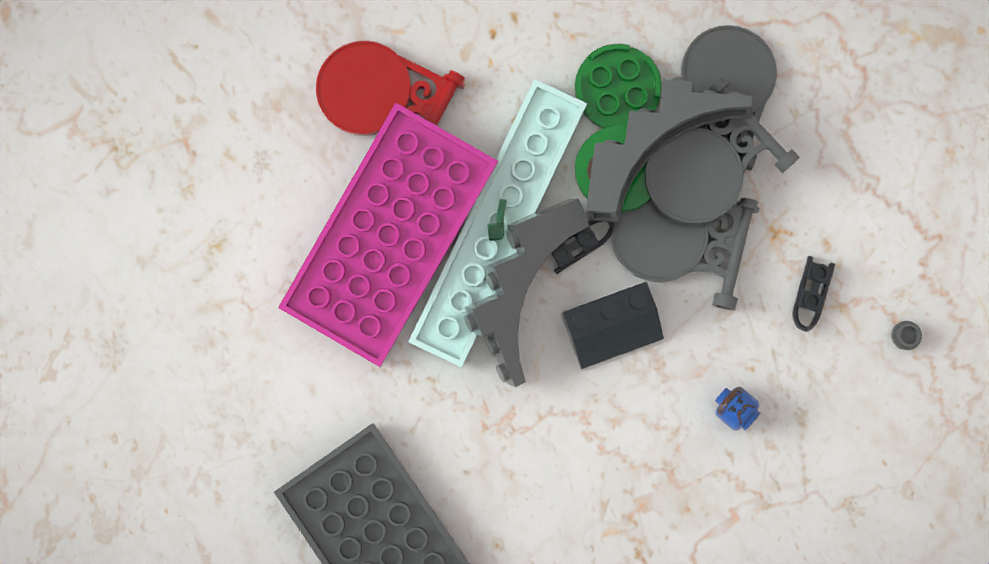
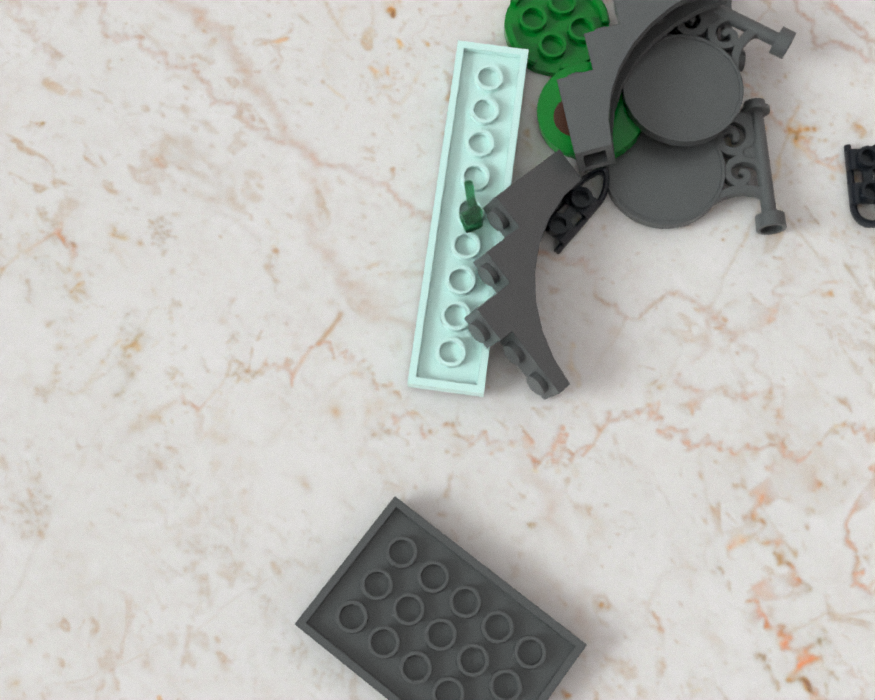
camera: 20 degrees left, 10 degrees down
(365, 81) = (267, 111): red piece -> none
(388, 234) = (341, 265): dark pink plate -> none
(613, 325) = (649, 287): black slope -> none
(737, 408) = (834, 340): blue head -> none

